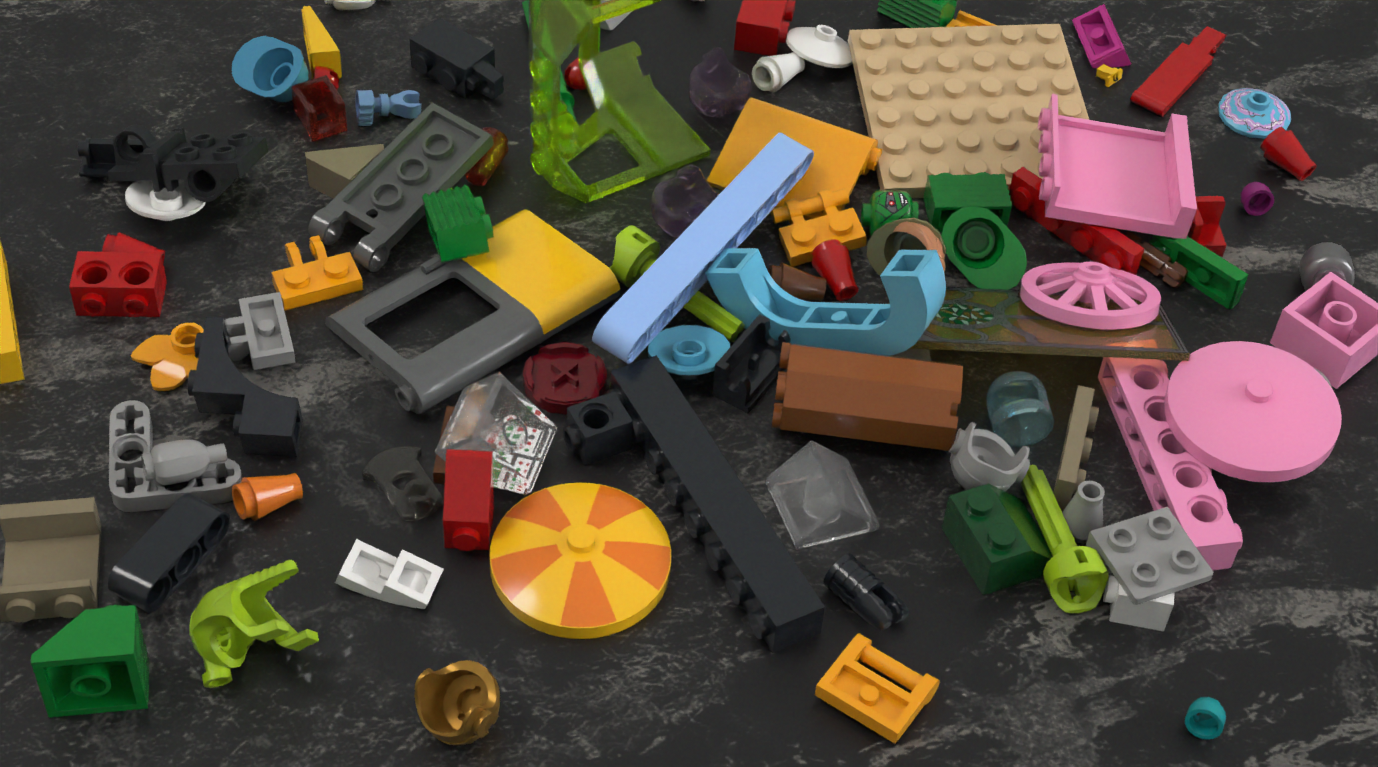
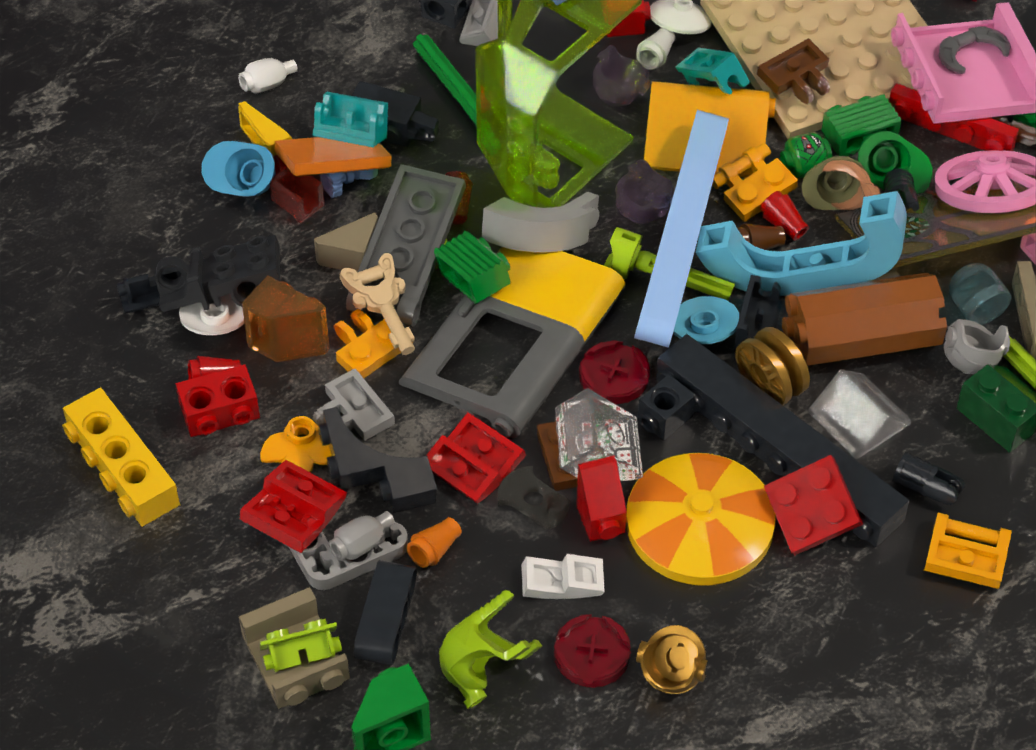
camera: 15 degrees left, 5 degrees up
(36, 552) = (285, 646): none -> lime hinge
(130, 411) = (293, 506): none -> red slope
(225, 223) = (284, 322): none -> clear orange slope
(343, 228) = (380, 298): none -> tan piece
(359, 421) = (474, 458): none -> red slope
(371, 78) = (325, 156): none -> orange tile
(379, 666) = (592, 650): none -> dark red tile
(408, 50) = (351, 119): none -> teal hinge
(555, 207) = (540, 229): none -> light grey arch
(709, 579) = (813, 505): none -> red plate
(736, 415) = (773, 364): none -> pearl gold wheel
(827, 98) = (713, 66): none -> teal hinge
(912, 121) = (795, 66): none -> reddish brown hinge
(979, 285) = (903, 180): none -> black hinge
(1102, 144) = (951, 45): none -> dark grey piece

